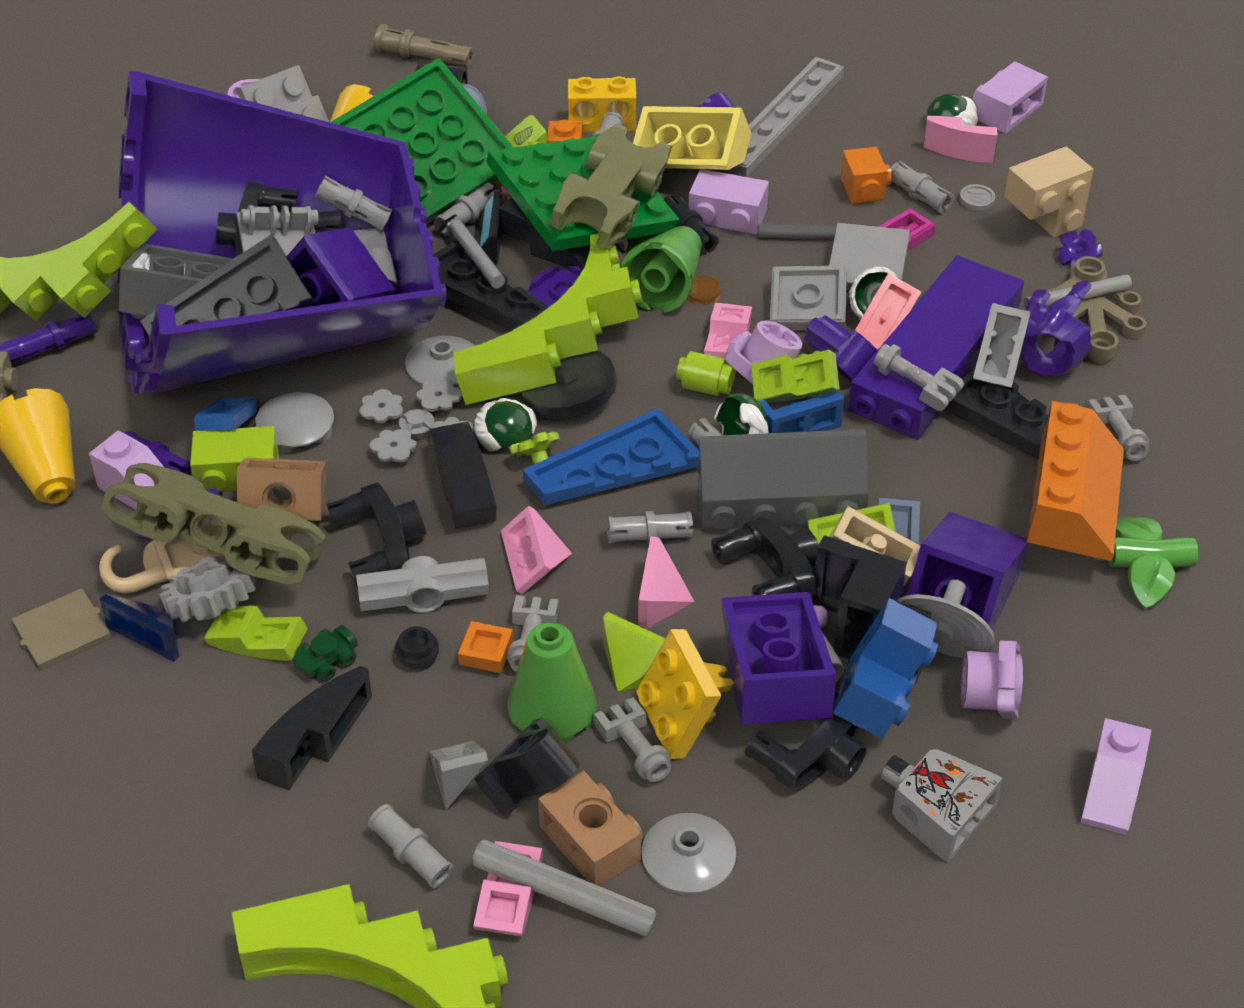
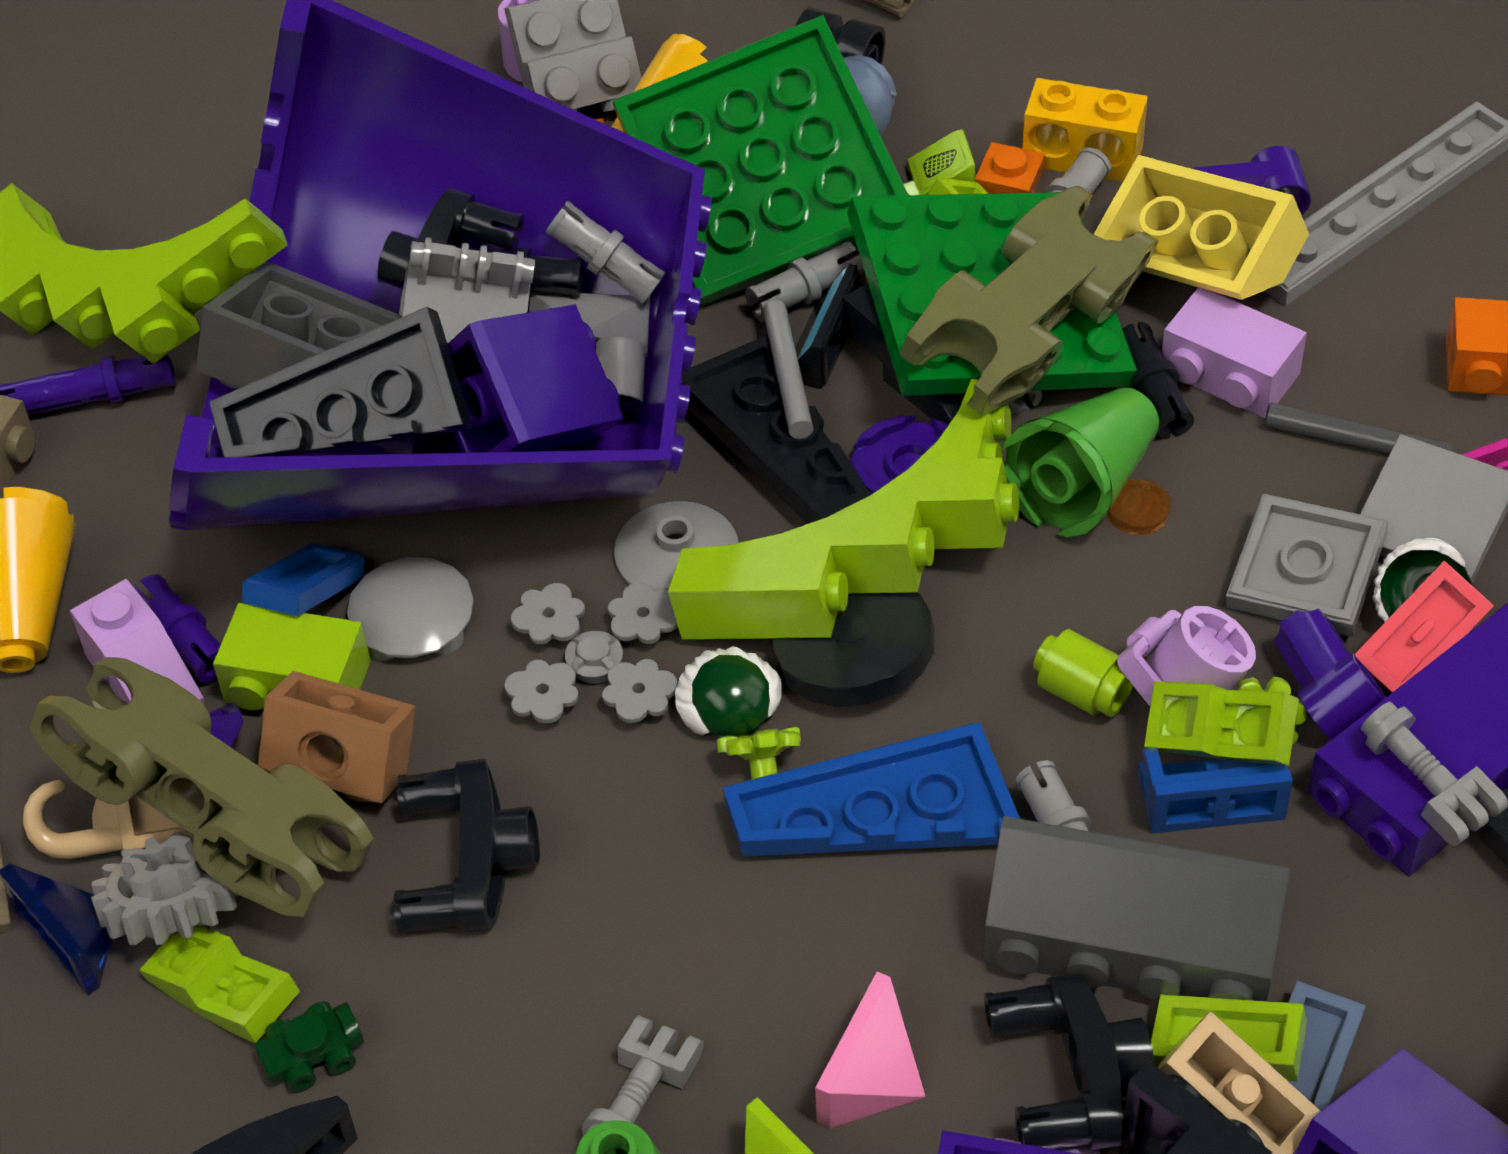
camera: 20 degrees right, 5 degrees up
(416, 647) = (450, 1073): black plate -> none
(422, 584) = (496, 960): light grey piece -> none
(463, 475) = (626, 772): black slope -> none
(485, 647) = (554, 1101): orange plate -> none
(531, 549) = (693, 936): bright pink slope -> none
(649, 525) = (893, 942): light grey pin -> none
(725, 323) = (1151, 585): bright pink slope -> none
(741, 415) = (1111, 783): dark green hair -> none

